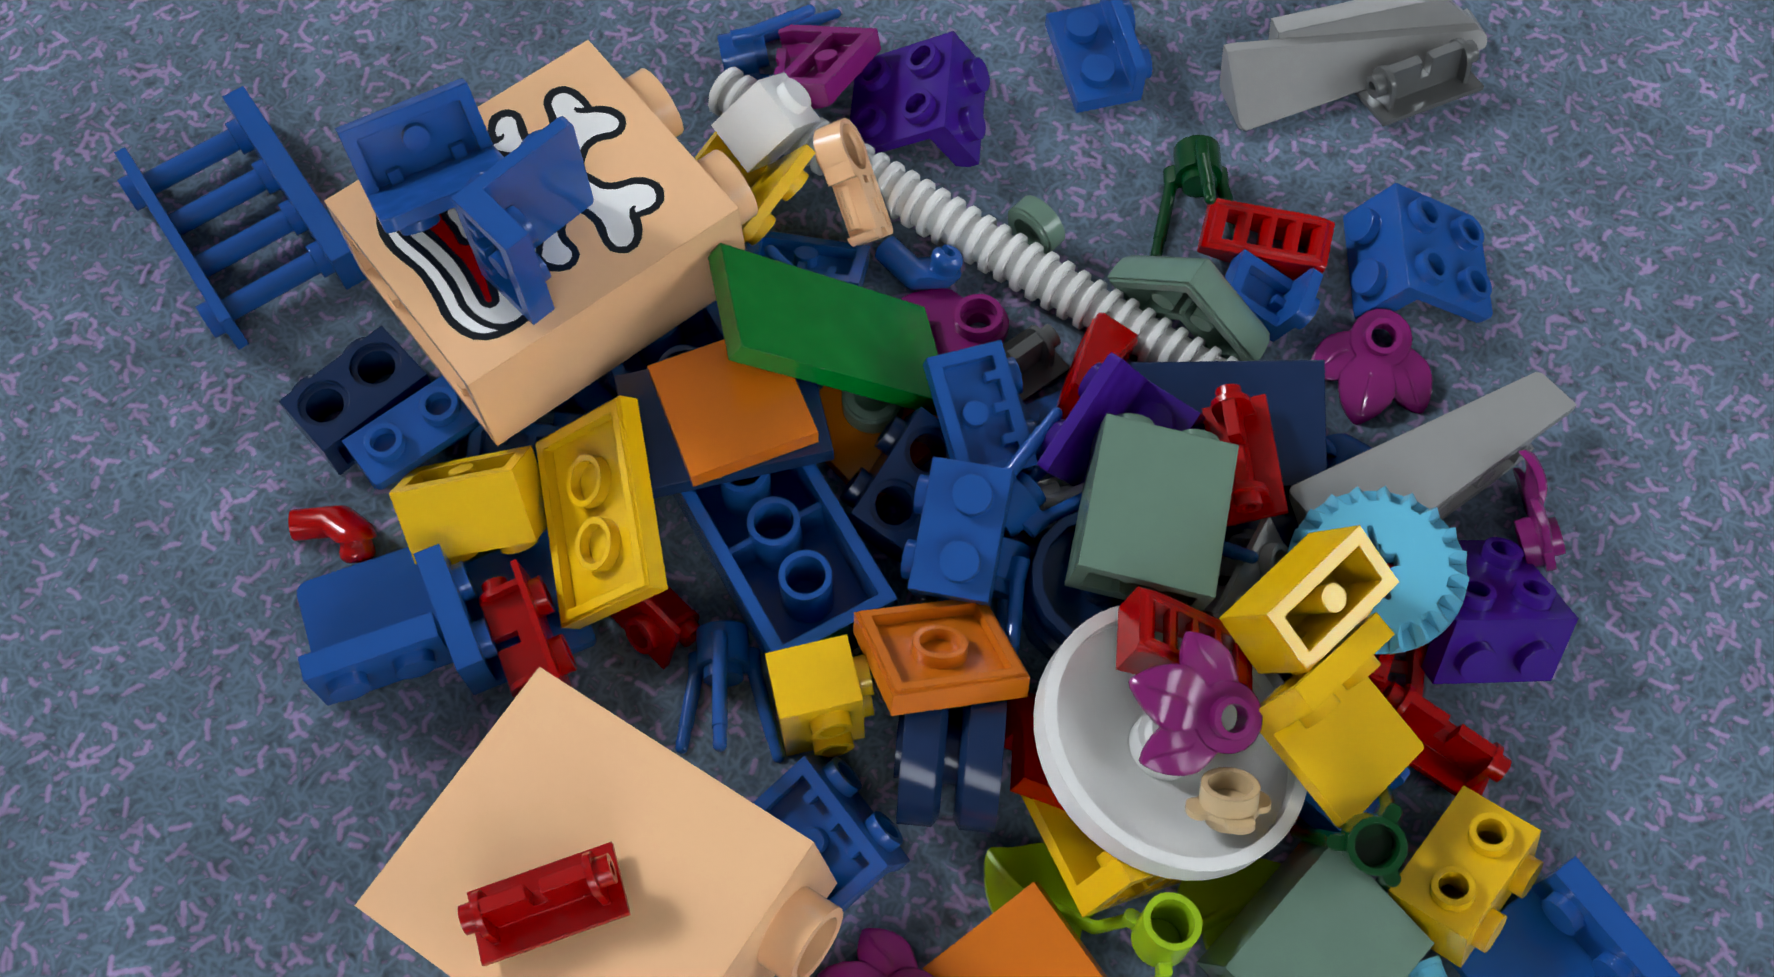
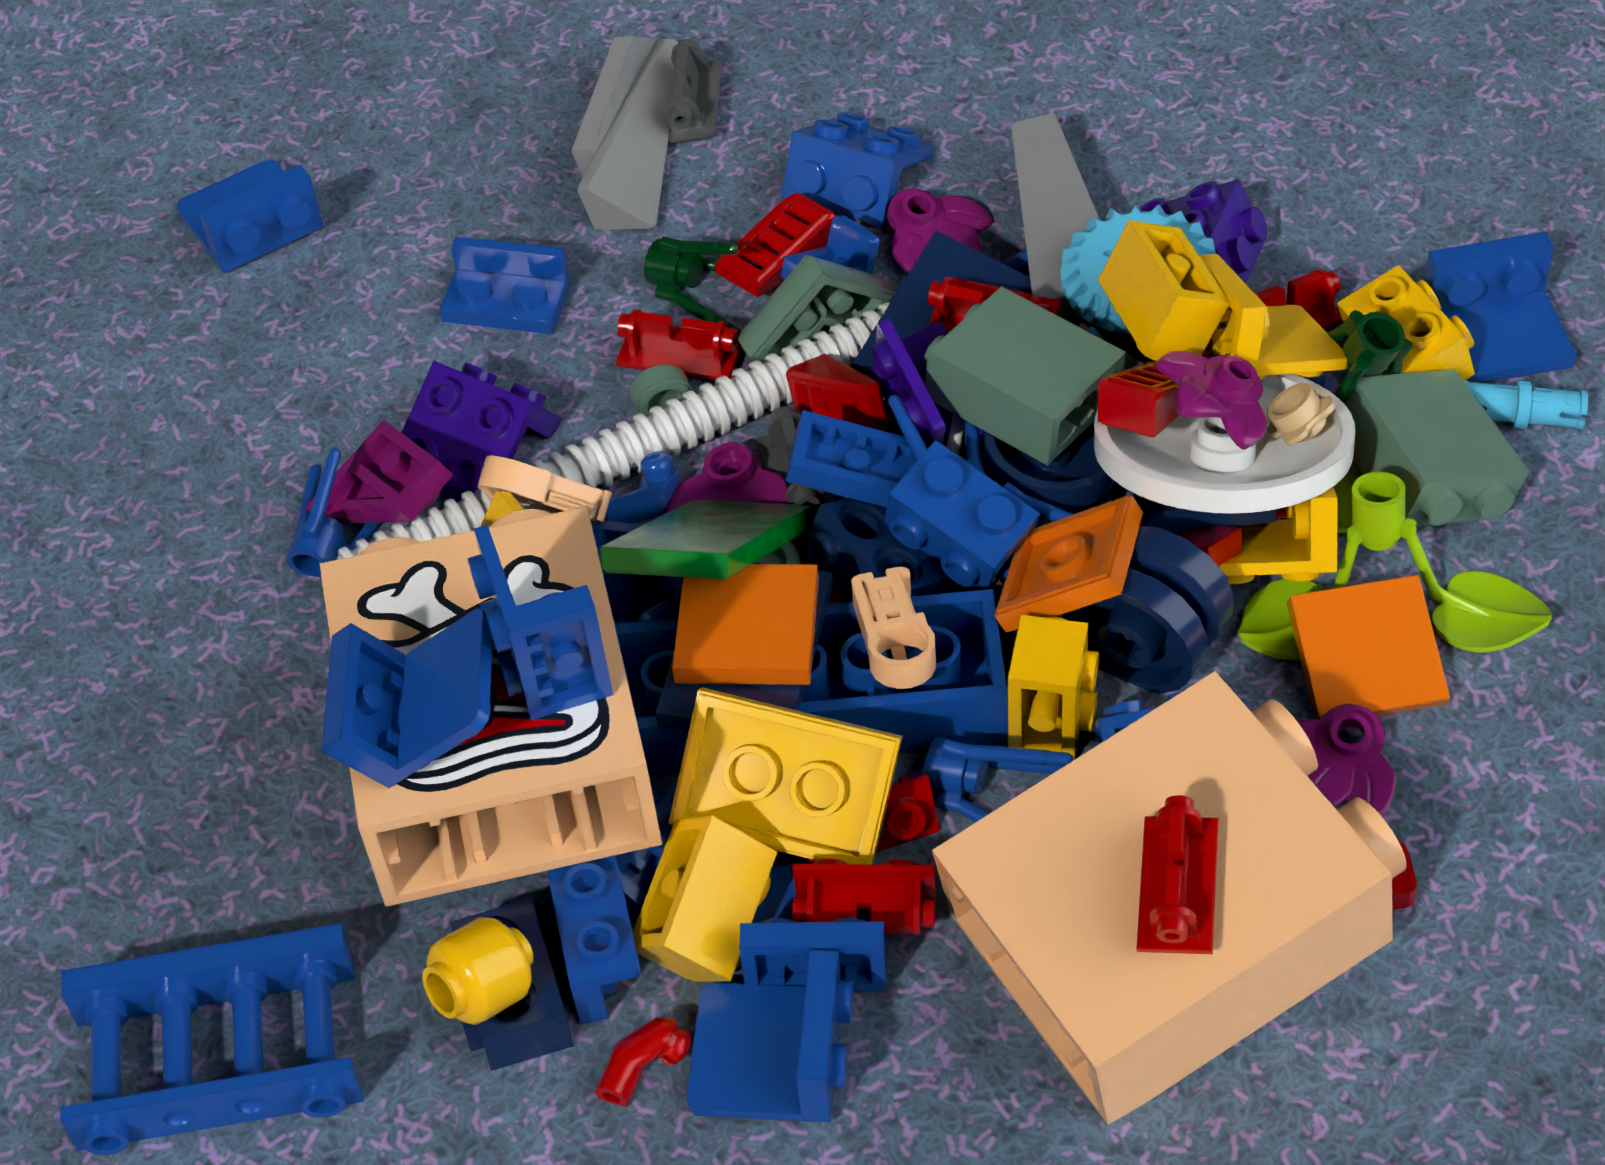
camera: 60 degrees left, 15 degrees down
(313, 365) = (478, 970): none -> yellow head
(766, 121) = (436, 509): white brick -> none
(803, 522) = (891, 622): none -> light nougat piece
(1101, 212) = (696, 346): none -> red hinge
(1536, 534) = (1130, 175): magenta plate -> none

